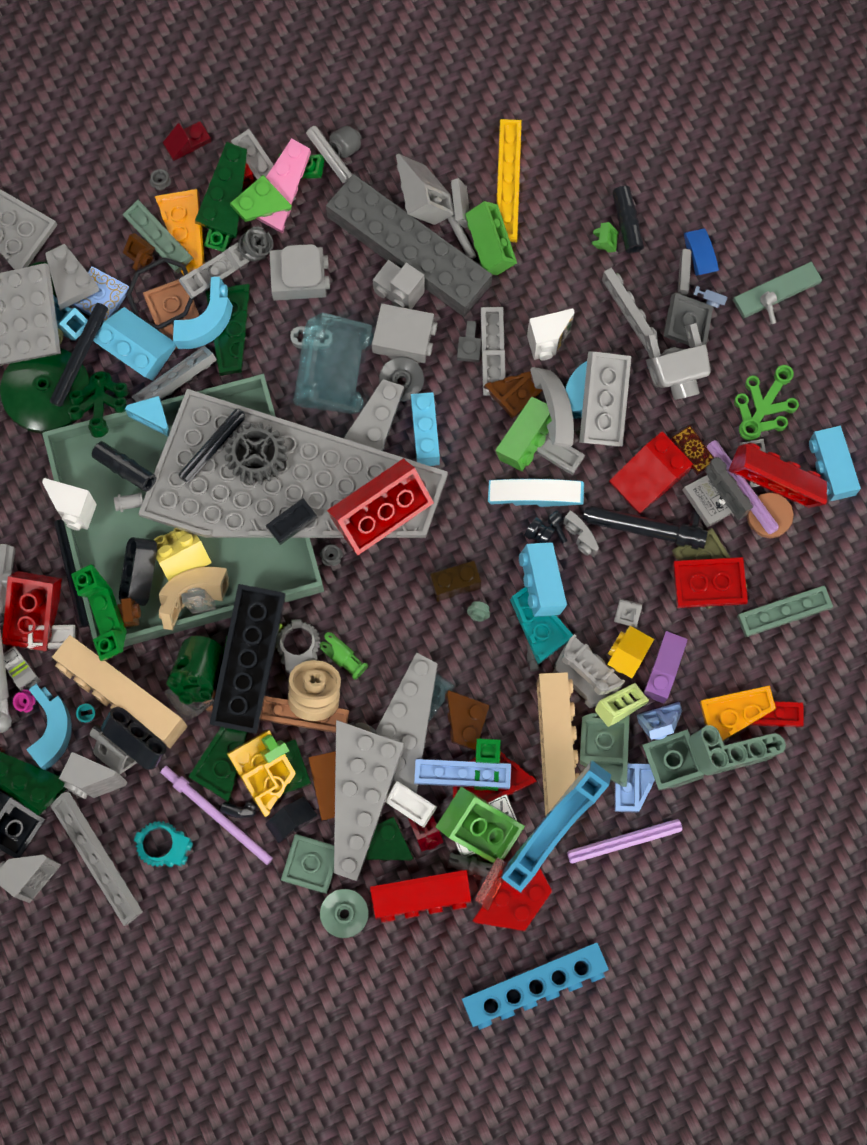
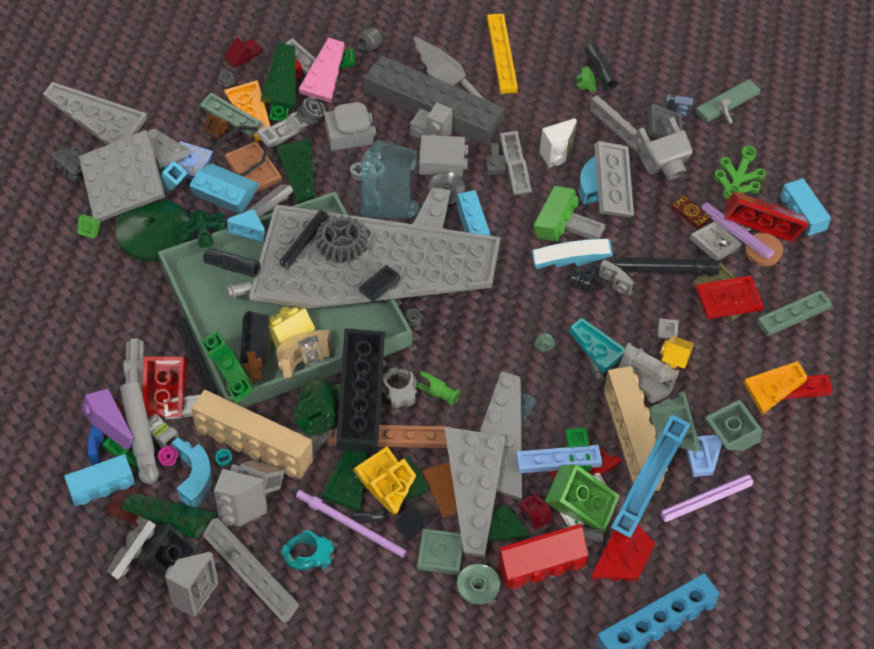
camera: 10 degrees left, 20 degrees down
(72, 503) = (191, 291): white slope -> none
(78, 354) = (180, 196): black axle -> none
(133, 738) = (272, 460): black beam -> none
(210, 324) = (282, 167): medium azure arch -> none
(260, 201) = (311, 78): bright green wing -> none
(273, 748) = (392, 456): bright green tile -> none
(314, 690) = (420, 411): tan wheel -> none
(329, 154) = (360, 49): light grey axle -> none
(380, 506) = (451, 263): red slope -> none
(410, 804) = (519, 488): white tile -> none
(455, 581) = (520, 321): dark brown brick -> none
(460, 201) = (468, 68): light grey tile -> none
(465, 718) = (551, 422): reddish brown wing -> none
(490, 238) = (497, 86): bright green brick -> none
(491, 885) = (603, 541): clear red tile -> none
(513, 392) = (539, 187): reddish brown wing -> none
(542, 579) = (593, 310): medium azure brick -> none
(561, 427) = (583, 200): light grey slope -> none
(608, 711) = (676, 395): yellowish green slope -> none
(651, 472) = (662, 228): red slope -> none
(660, 721) = (713, 402): light blue wing -> none
(665, 667) = (707, 366): medium lavender slope -> none
(684, 272) = (653, 93): light grey tile -> none
(701, 251) = (664, 81): blue slope -> none
(728, 488) = (727, 230): dark grey hinge -> none
(731, 755) = (781, 414): sand green beam -> none

